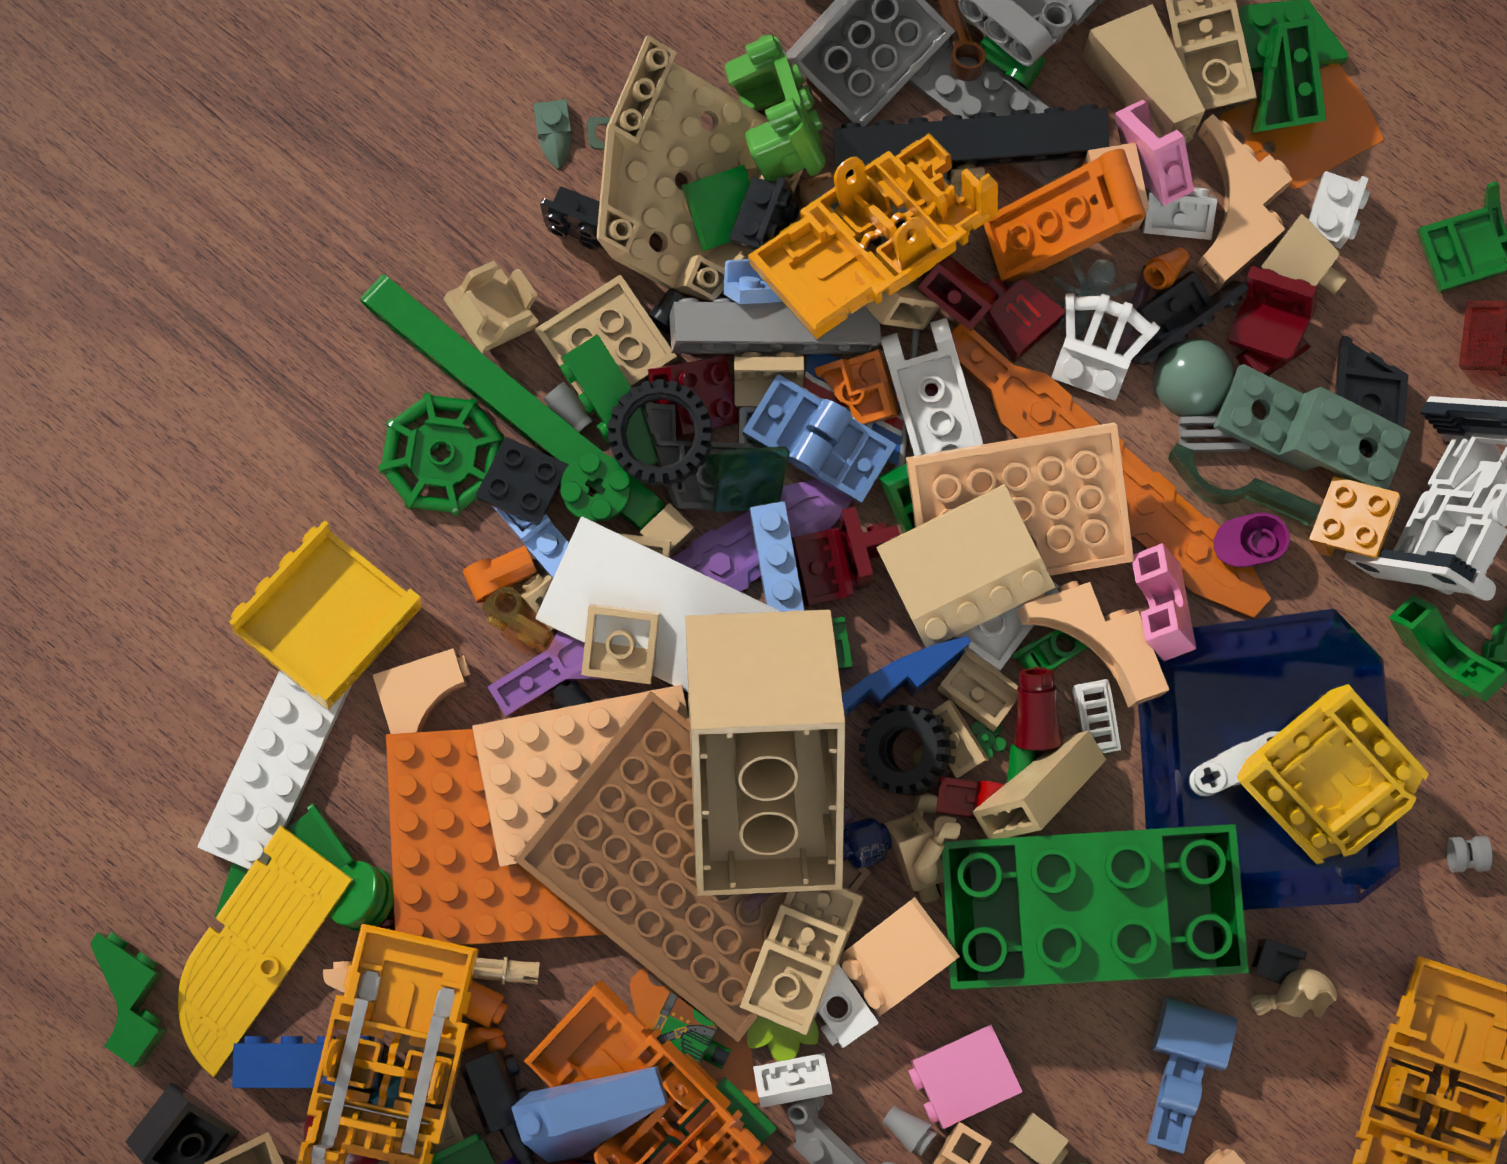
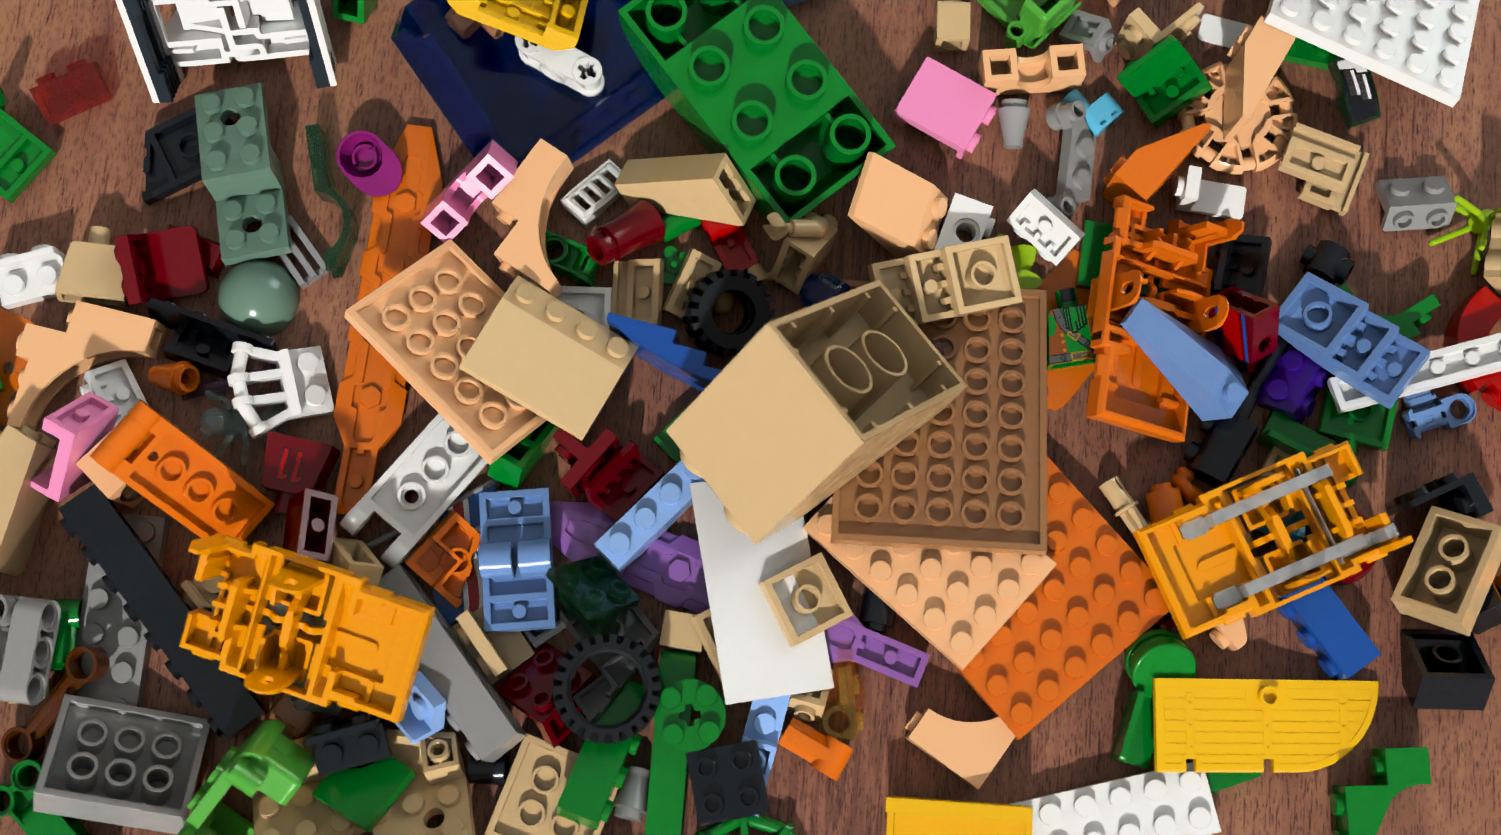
camera: 125 degrees left, 0 degrees up
(1354, 518) = (298, 90): light orange bracket -> none

